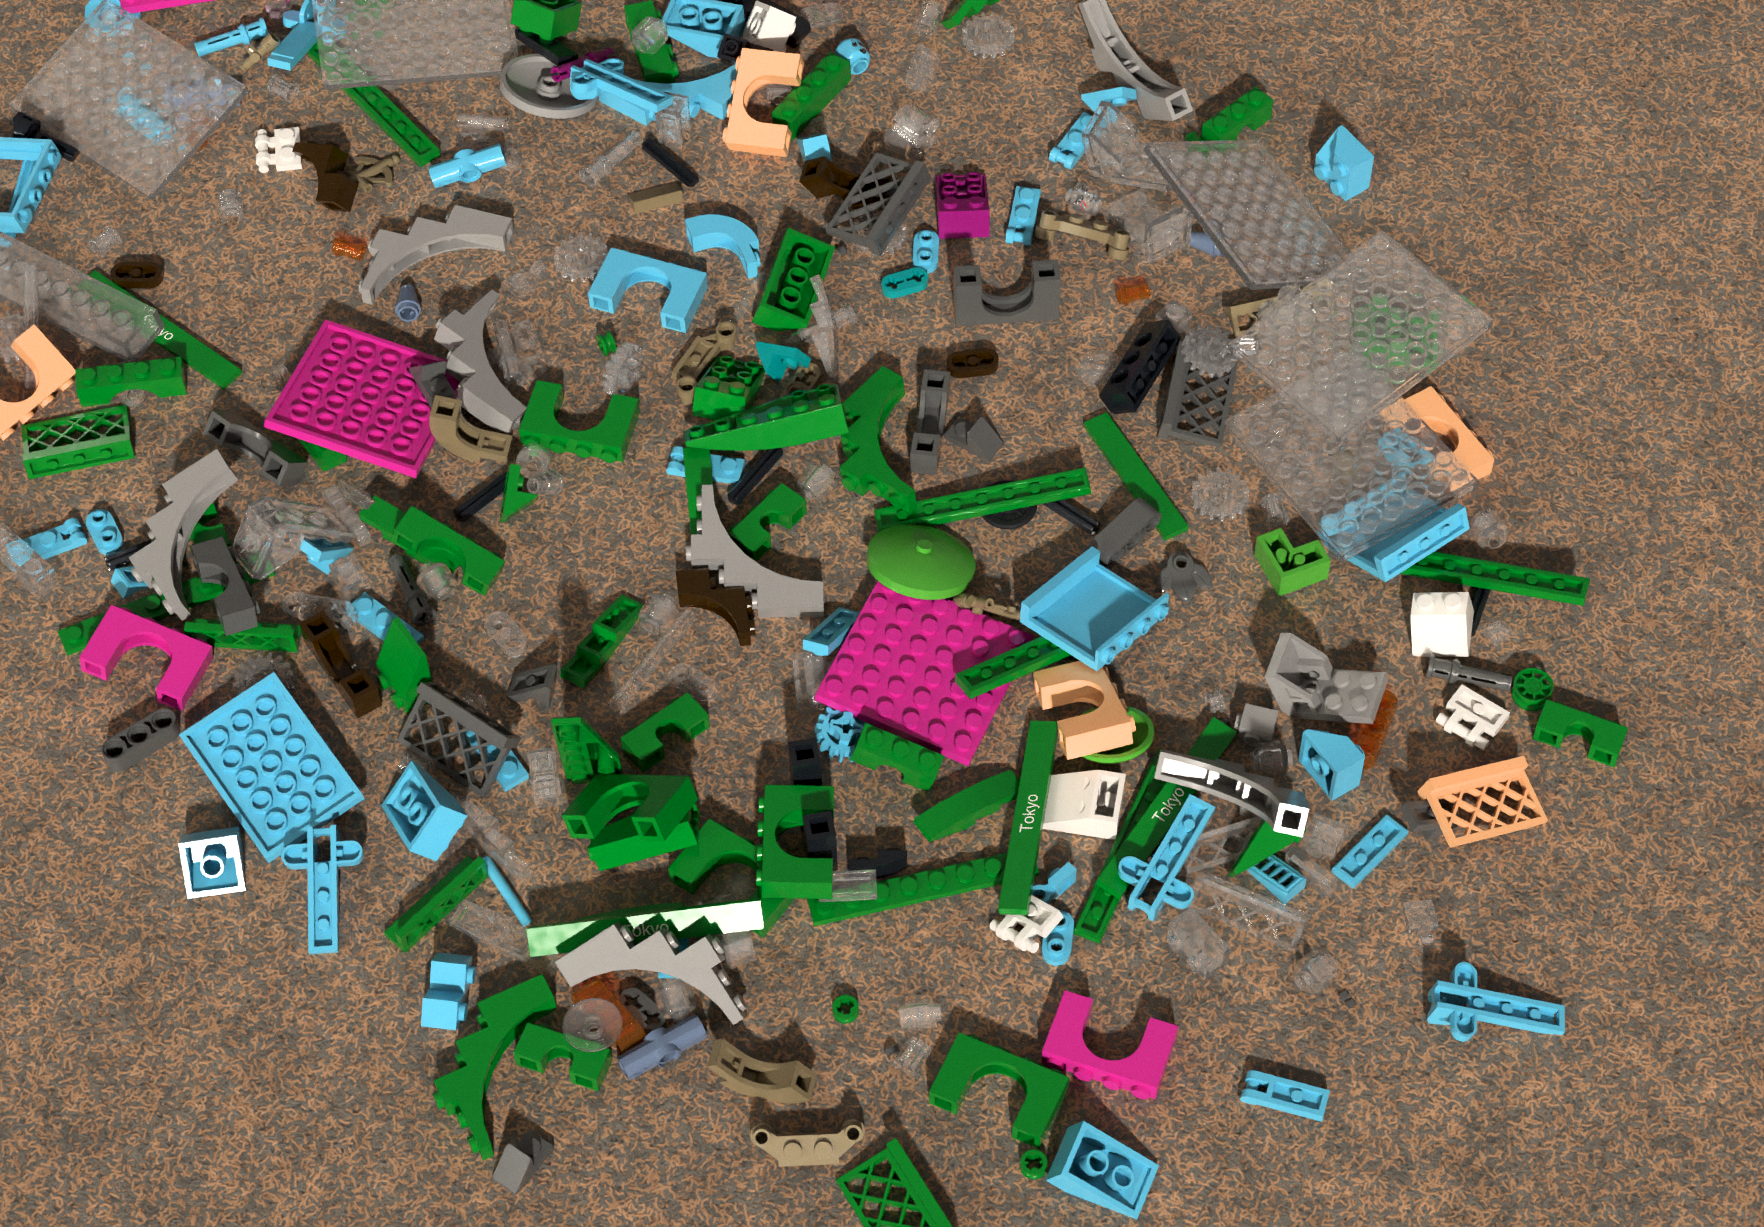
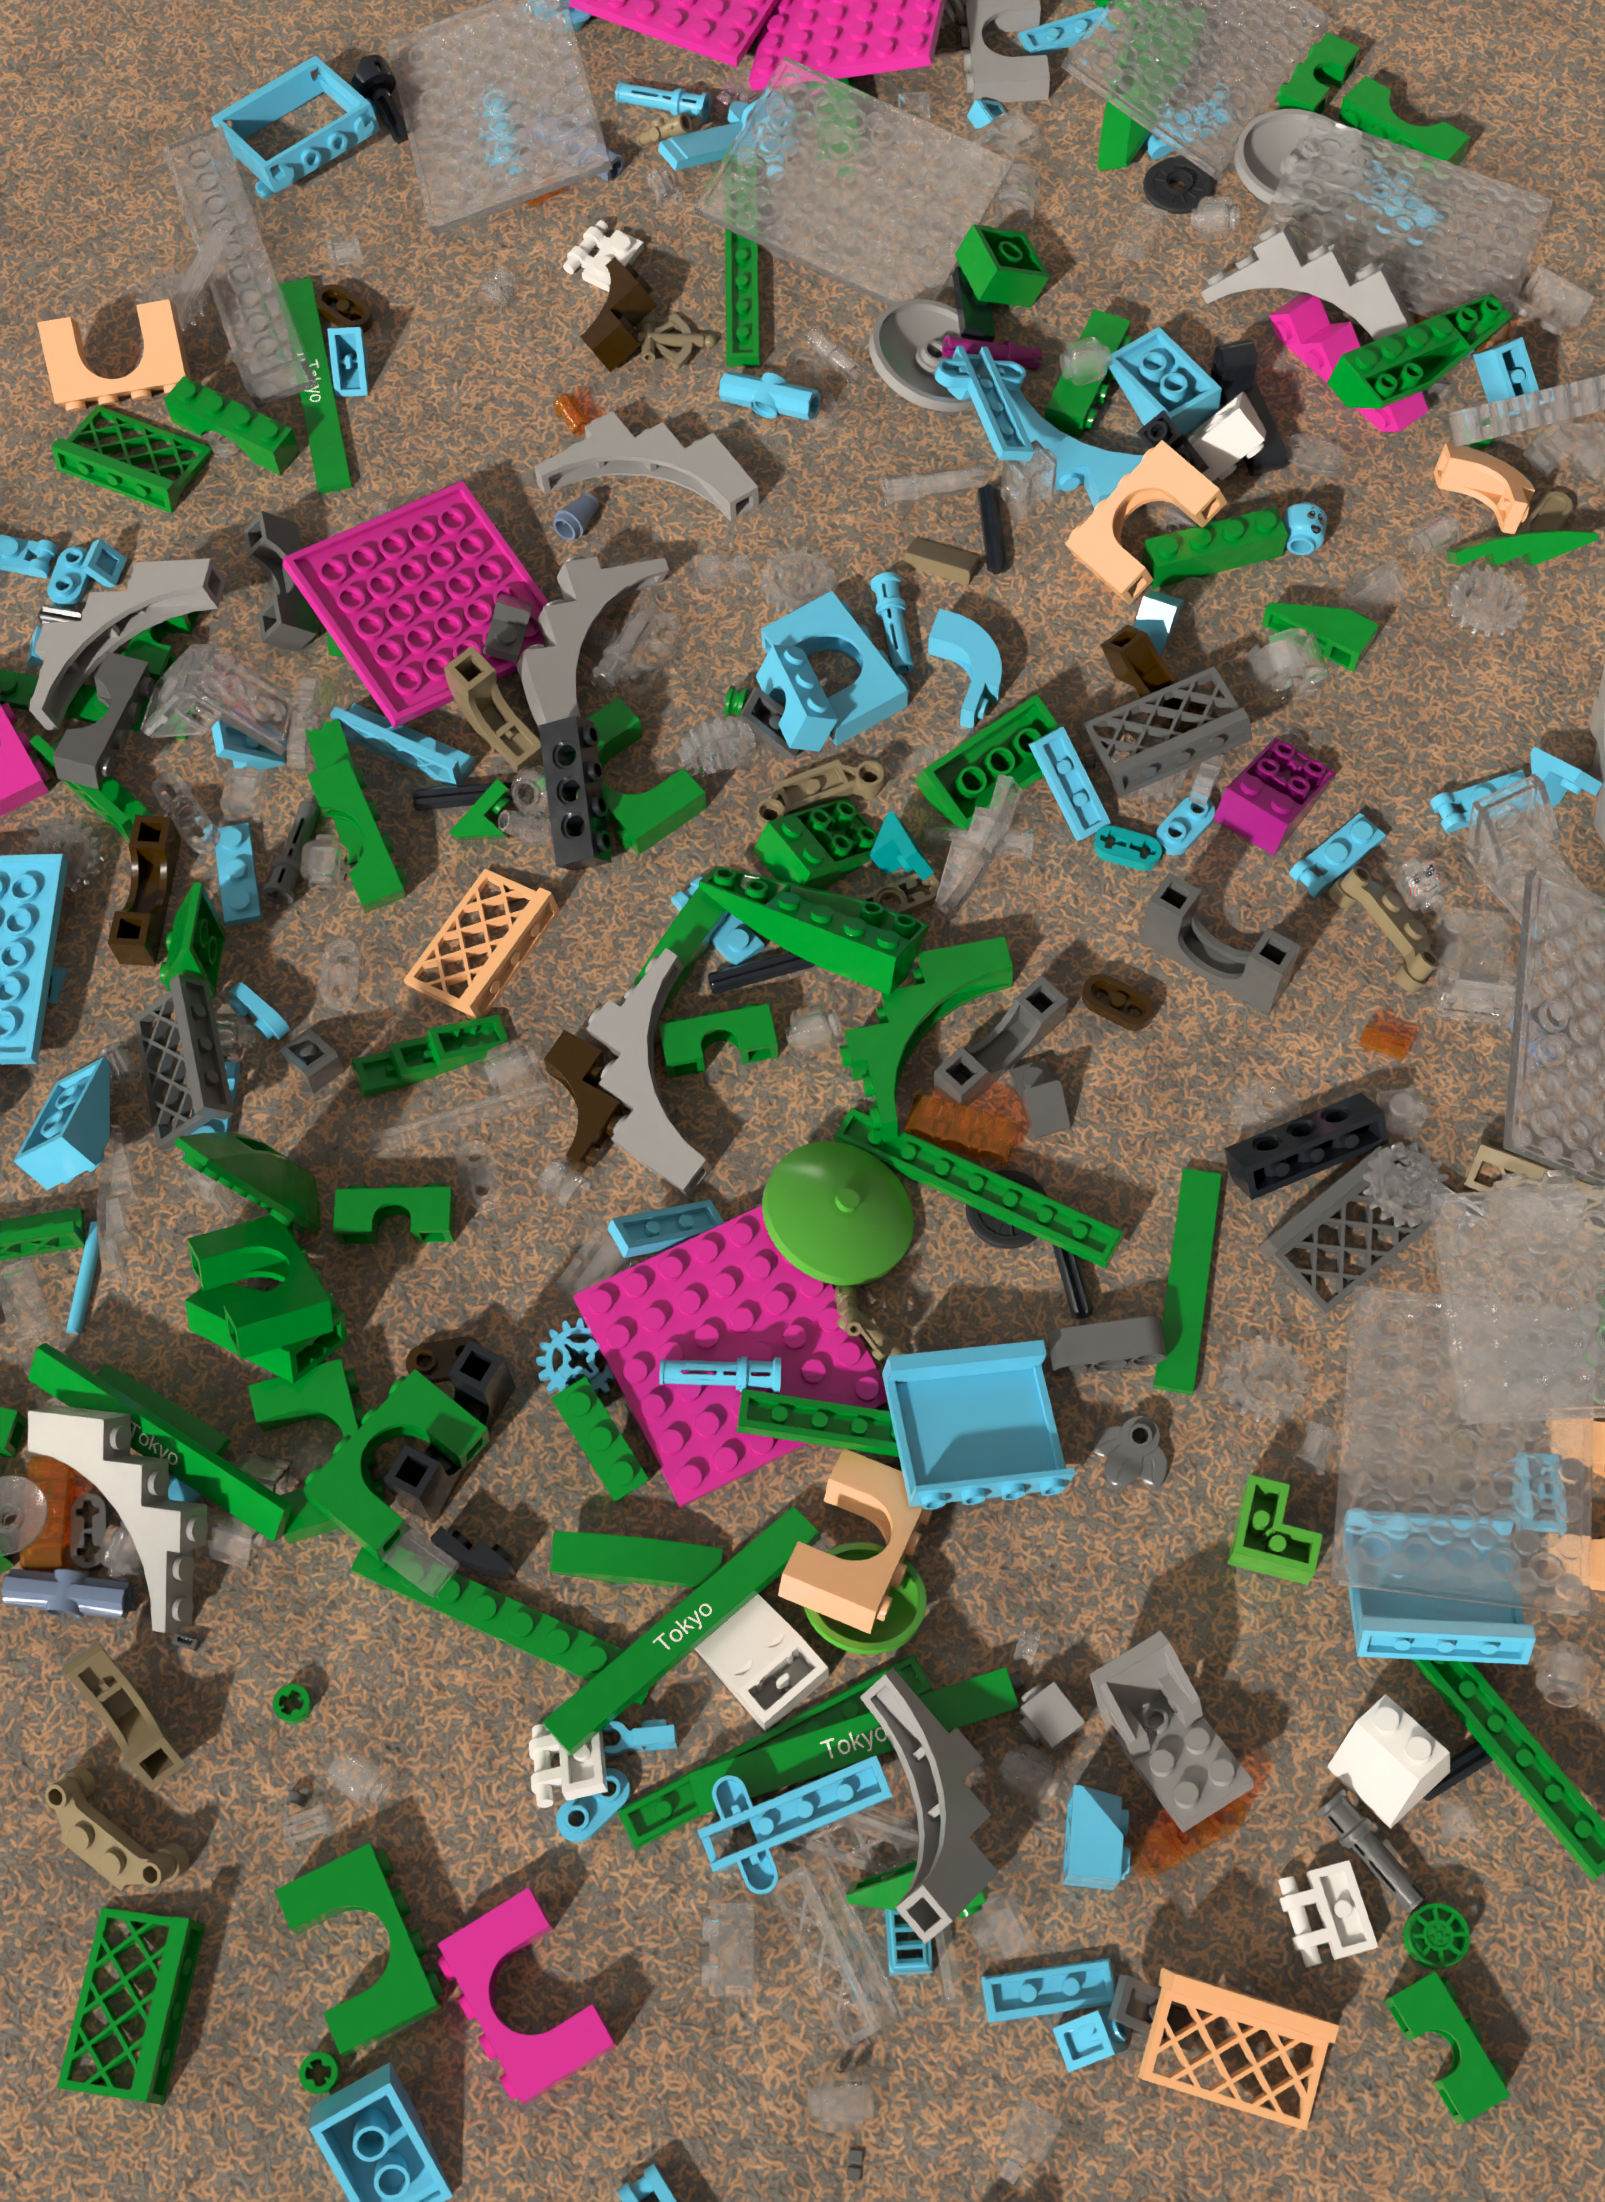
camera: 40 degrees right, 10 degrees up
(122, 509) = (103, 563): none -> medium azure plate
(173, 301) = (349, 361): none -> medium azure slope
(426, 490) = (404, 745): none -> medium azure fence
(484, 682) = (267, 1020): none -> medium azure plate
(531, 419) = (563, 779): none -> black brick
(599, 563) = (509, 952): none -> light nougat fence
(650, 340) = (763, 717): none -> dark grey slope
(652, 240) = (891, 611): none -> medium azure pin
(663, 318) = (807, 712): none -> medium azure arch
(741, 652) = (562, 1182): none -> clear wheel
(753, 1024) = (185, 1642): none -> dark grey piece
(758, 784) = (443, 1357): none -> dark brown plate
(846, 265) = (1069, 783): none -> medium azure plate
(920, 218) = (1206, 779): none -> clear beam
(926, 95) = (1339, 631): none -> green slope
(945, 670) = (671, 1373): none -> medium azure pin
(948, 478) = (962, 1128): none -> clear orange beam
(1410, 854) = (1090, 2039): none -> medium azure bracket

